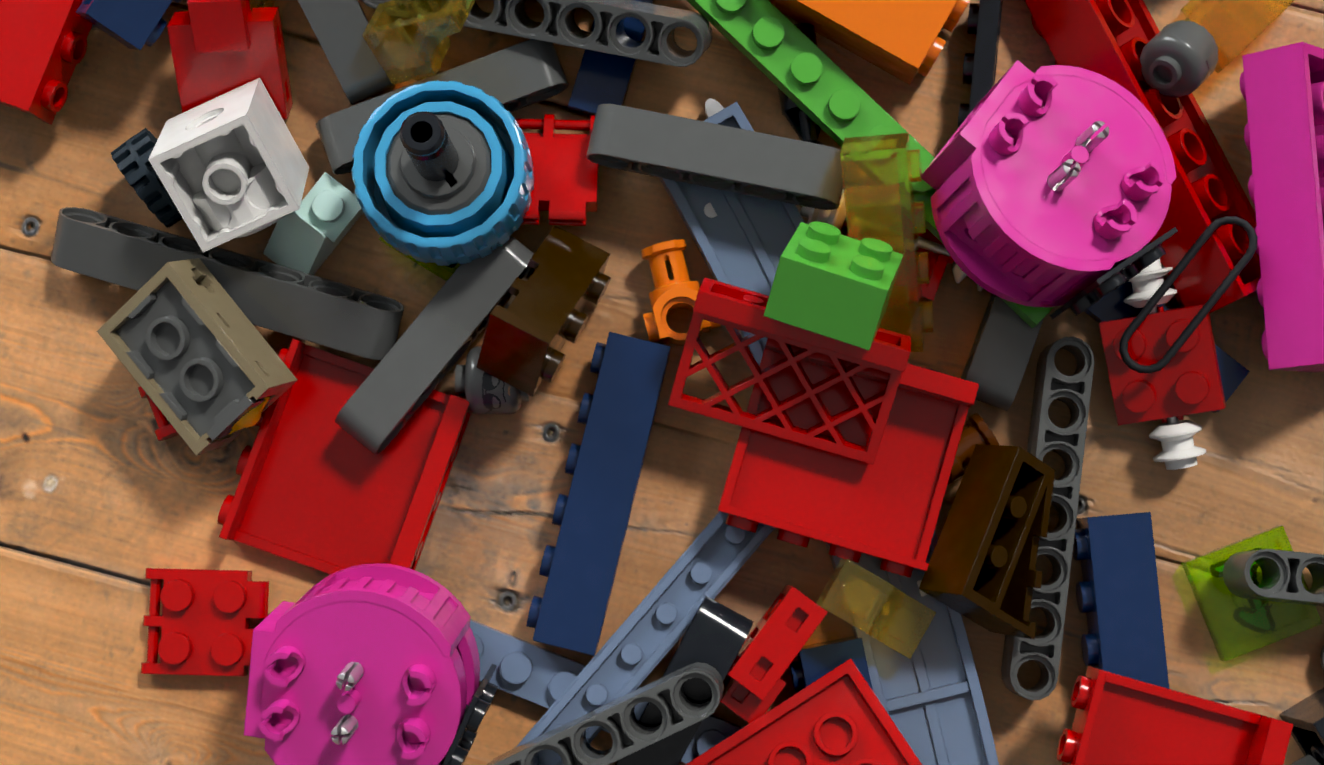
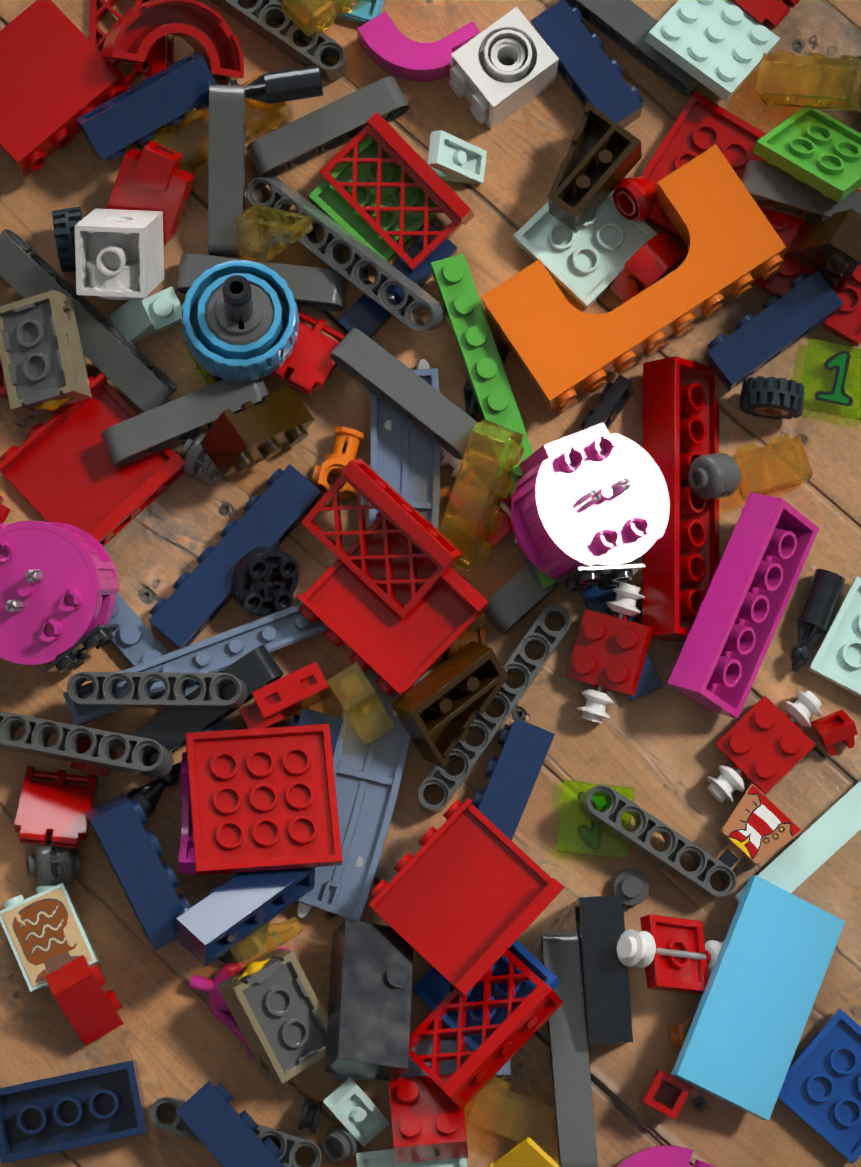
camera: 20 degrees right, 5 degrees down
(658, 505) = (265, 580): none -> black tile
(833, 284) = (431, 497): bright green brick -> none
(1204, 310) = (647, 627): black piece -> none

